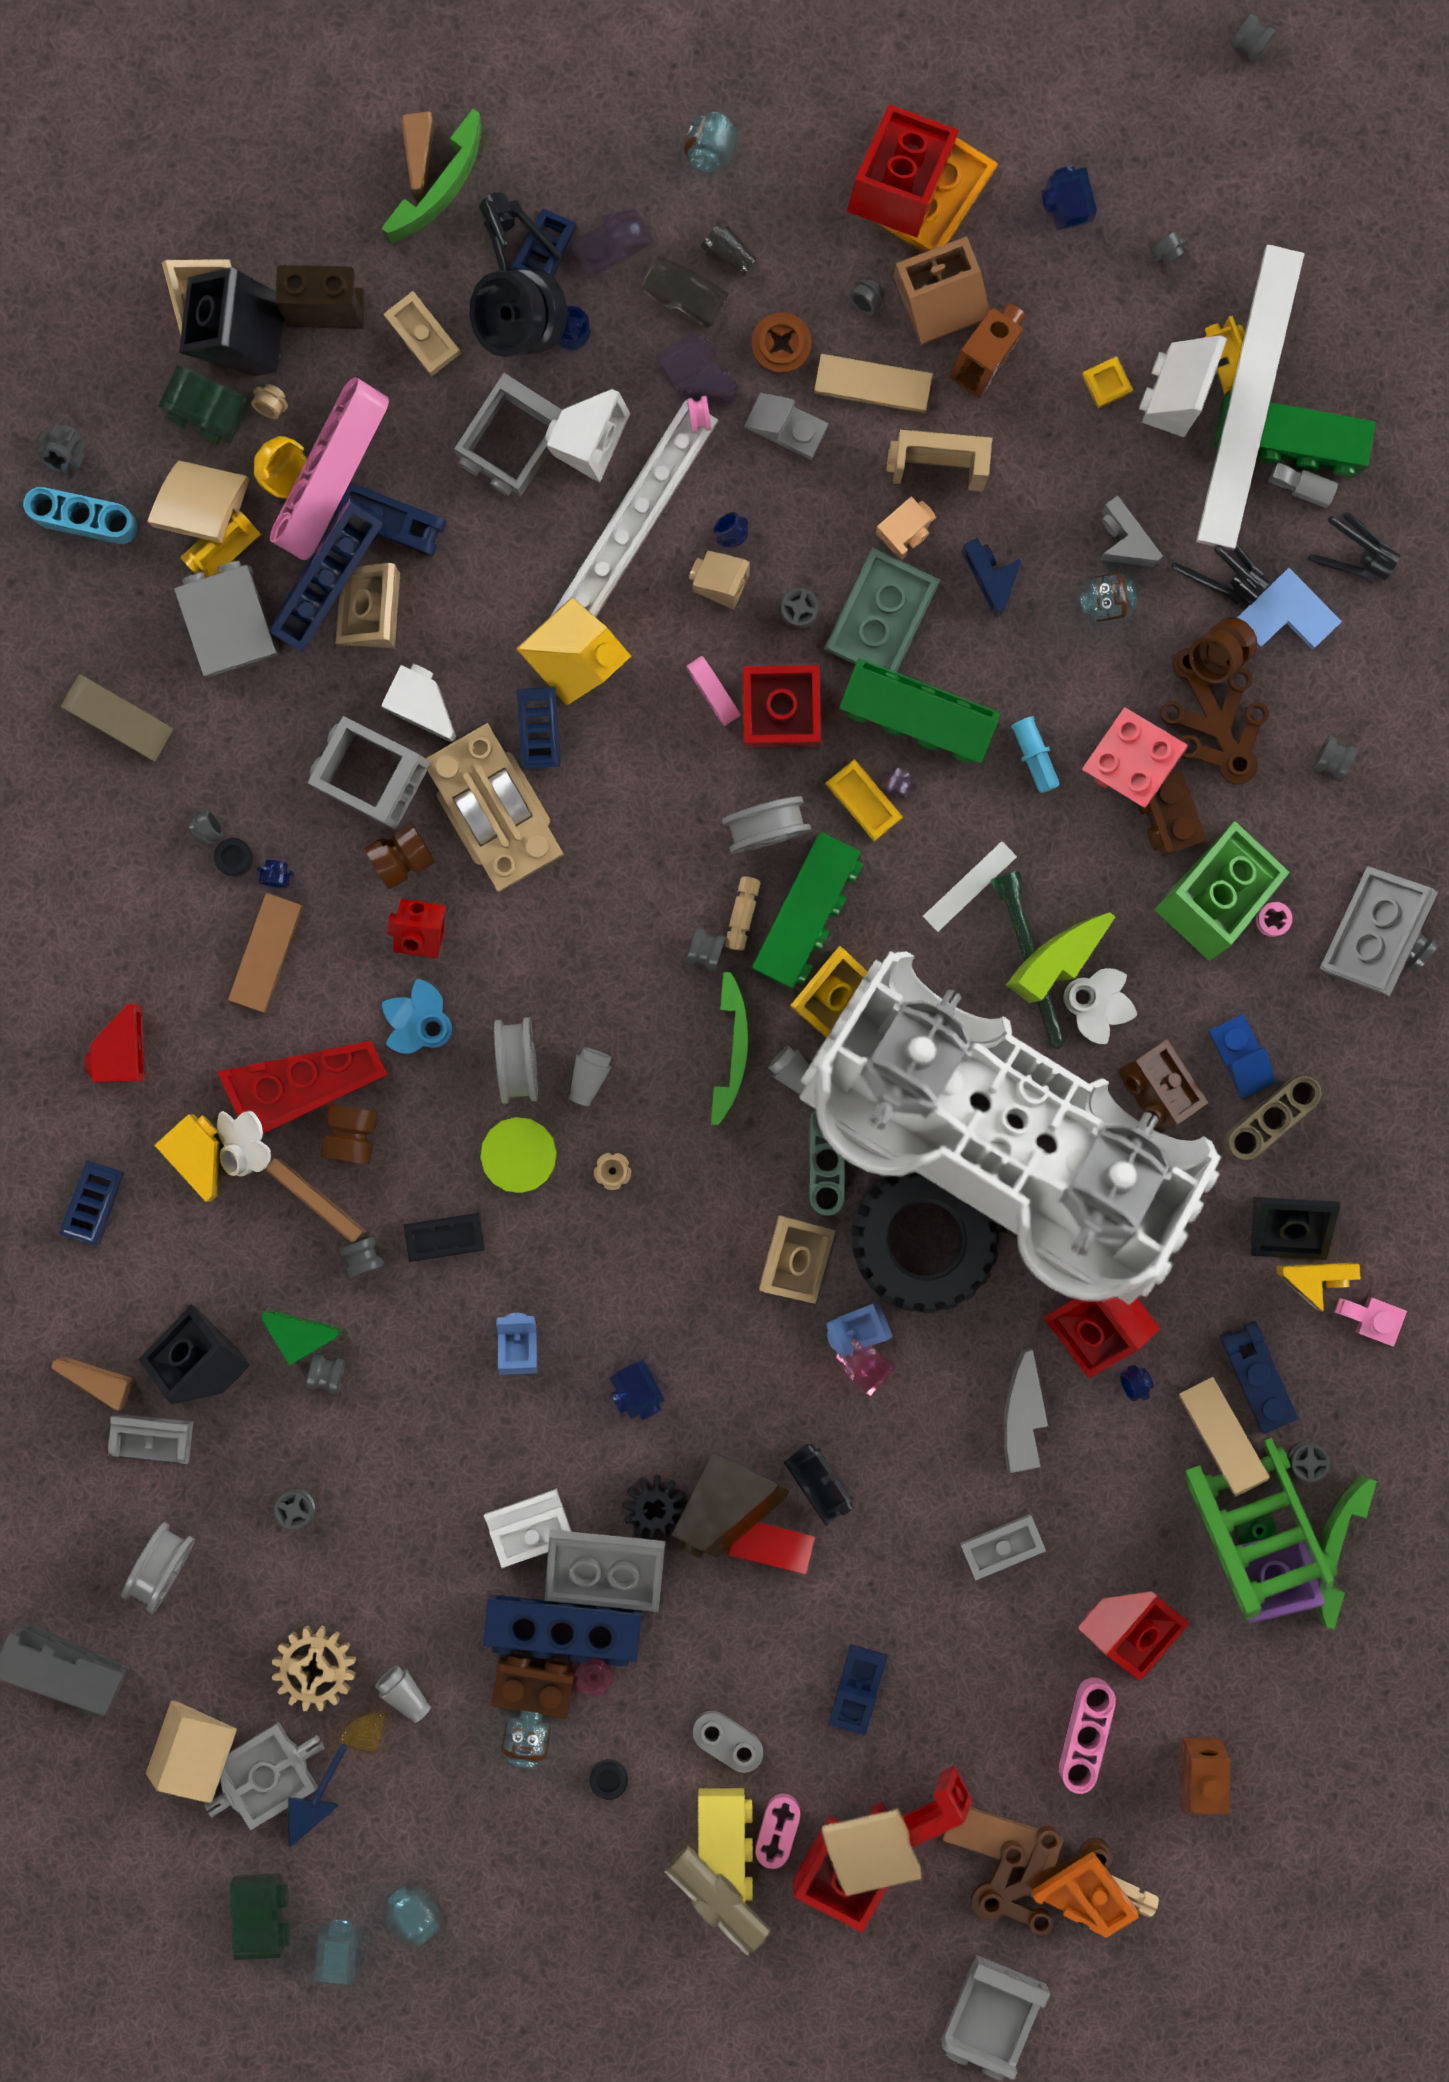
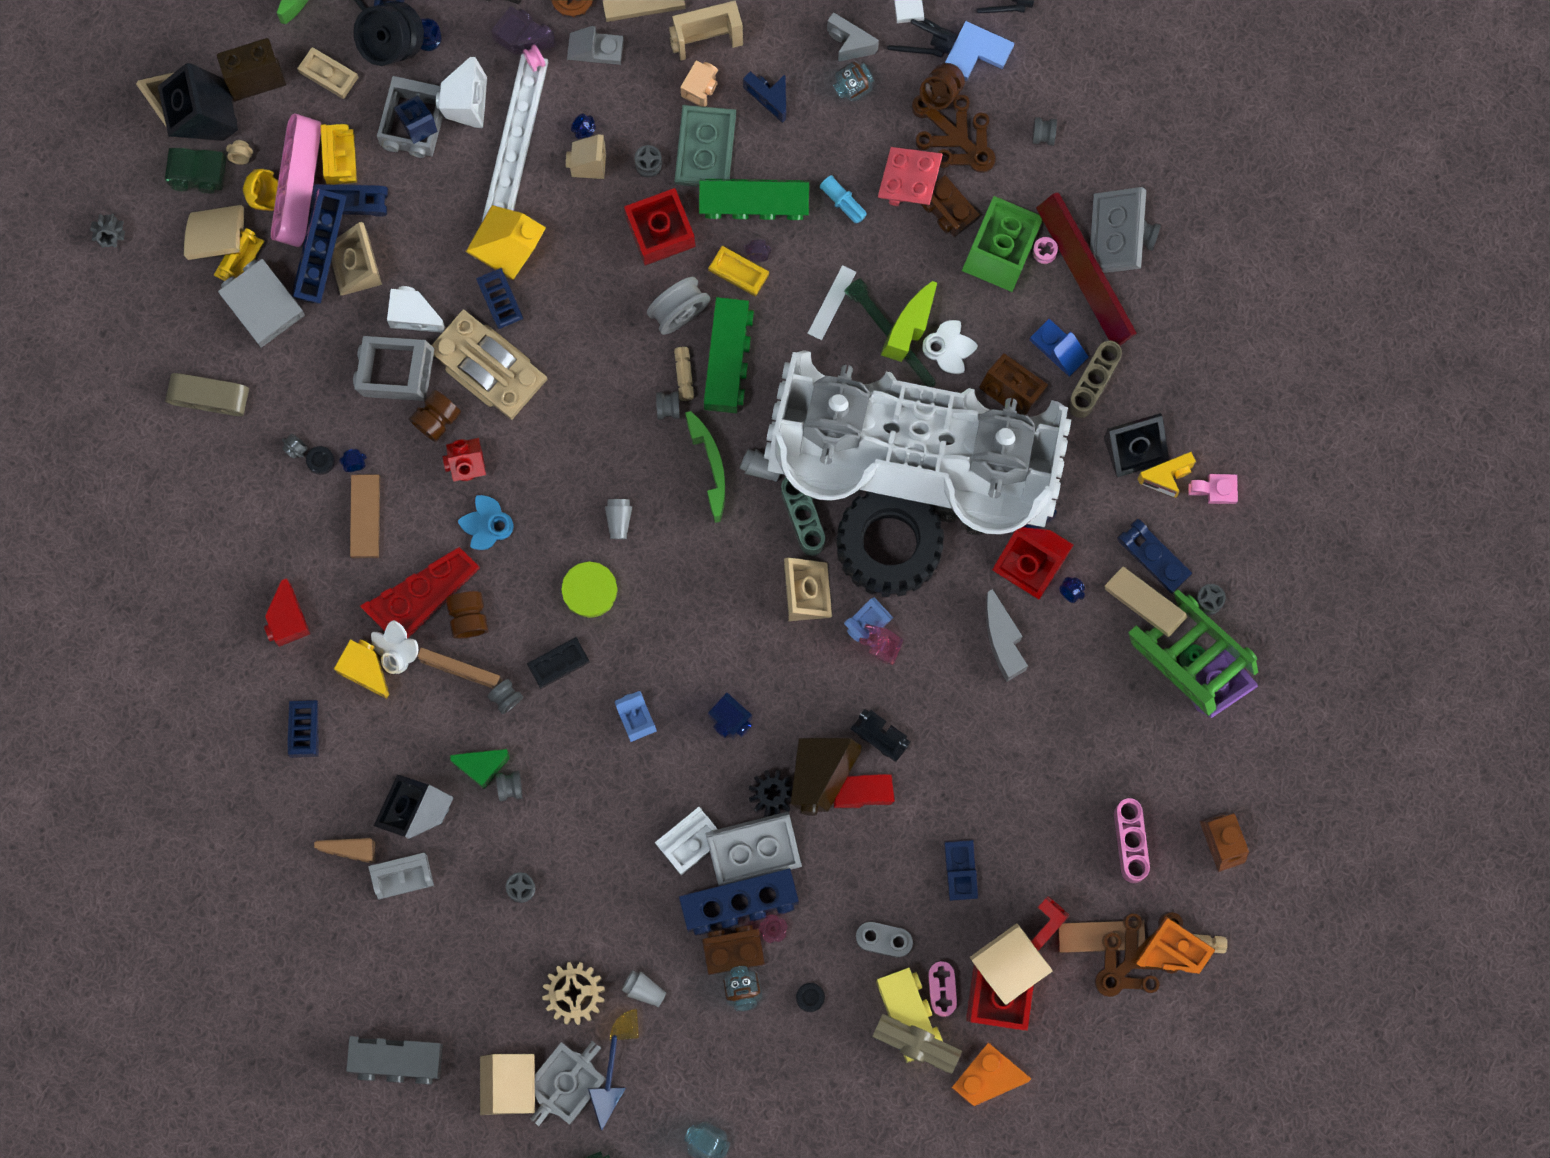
camera: 20 degrees left, 10 degrees down
(63, 510) = (124, 264): medium azure beam -> none
(157, 1567) = (438, 959): light grey wheel -> none
(397, 451) = (338, 154): none -> yellow hinge
(512, 445) = (416, 119): none -> dark blue slope
(516, 1060) = (564, 521): light grey wheel -> none
(622, 1174) = (653, 571): tan plate -> none
(713, 690) = (609, 234): bright pink beam -> none
(794, 1961) = (989, 1077): none -> orange wing
(829, 991) = (760, 401): yellow slope -> none
(993, 2017) = (1143, 1063): light grey panel -> none
(1002, 1547) = (1023, 733): light grey plate -> none
(1133, 1630) = (1136, 755): red slope -> none
(1317, 967) = (1086, 269): none -> dark red tile
(1354, 1501) = (1254, 616): bright green slope -> none

